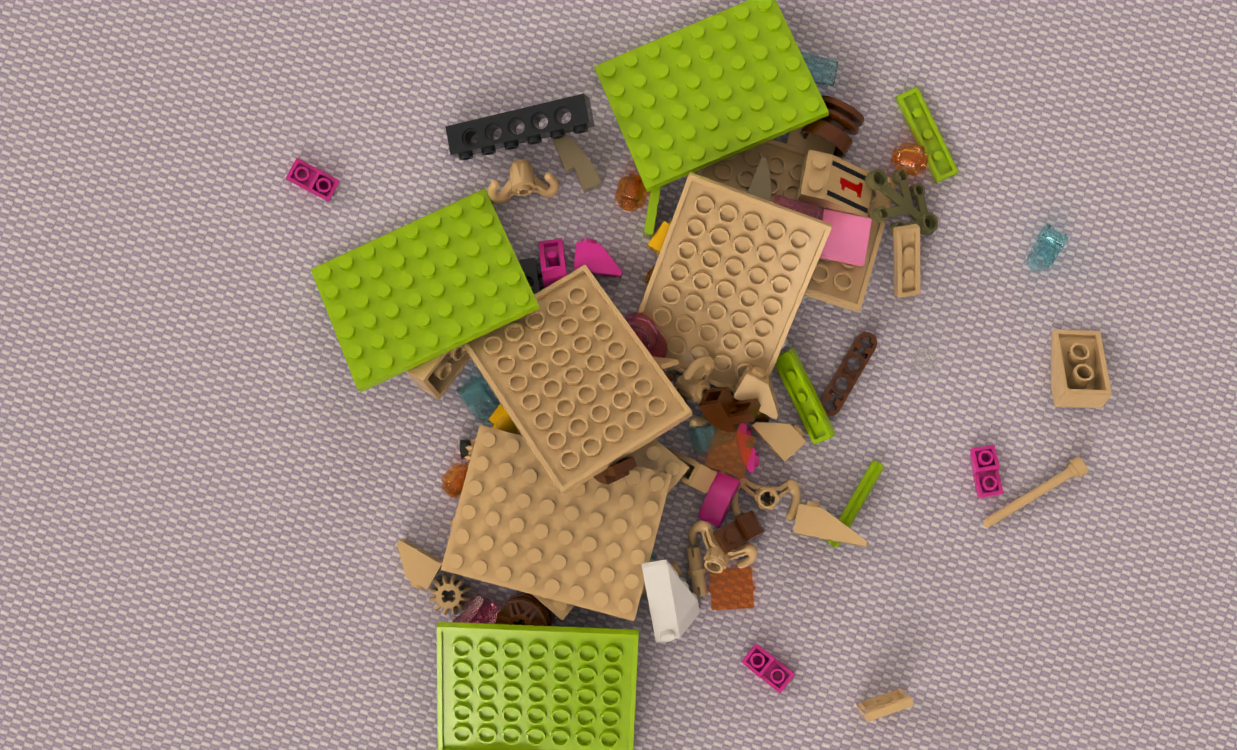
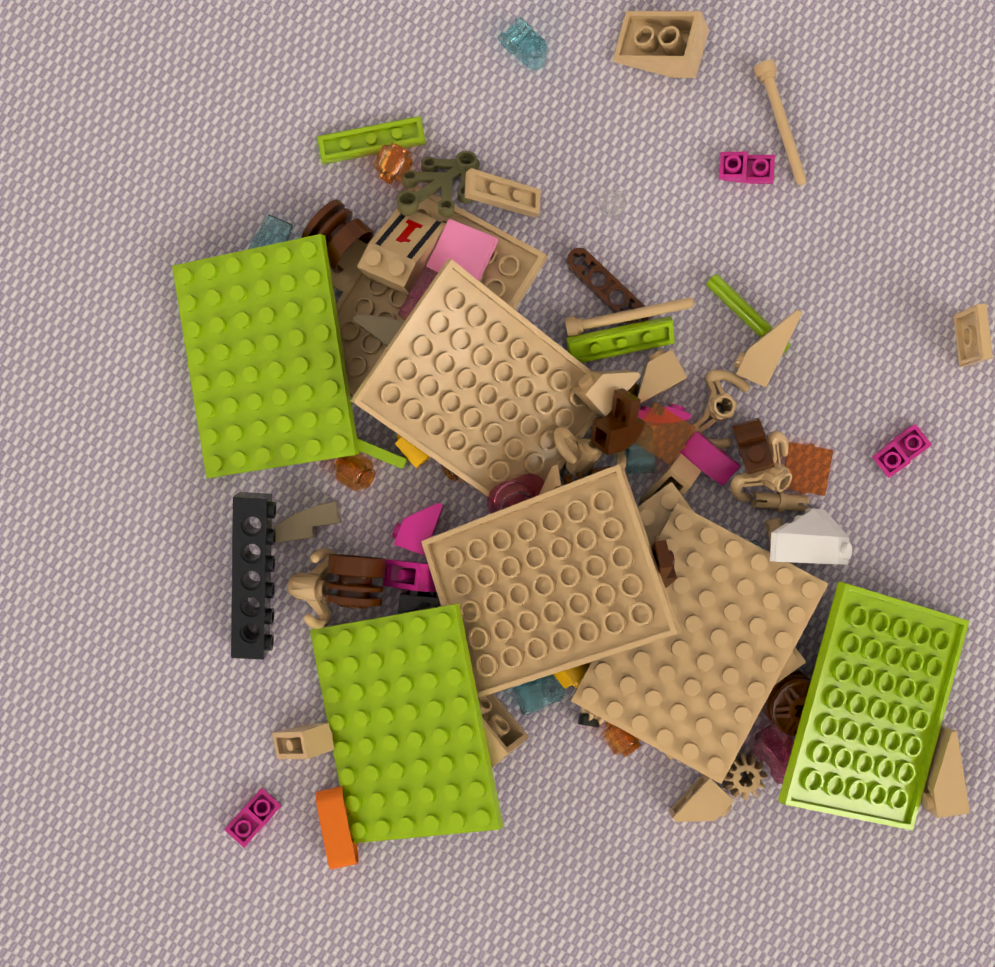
camera: 80 degrees left, 0 degrees up
(320, 252) = (333, 819): none -> orange beam
(388, 206) = (303, 741): none -> tan slope
(537, 216) = (355, 580): none -> reddish brown wheel
(807, 355) = (577, 326): none -> tan piece

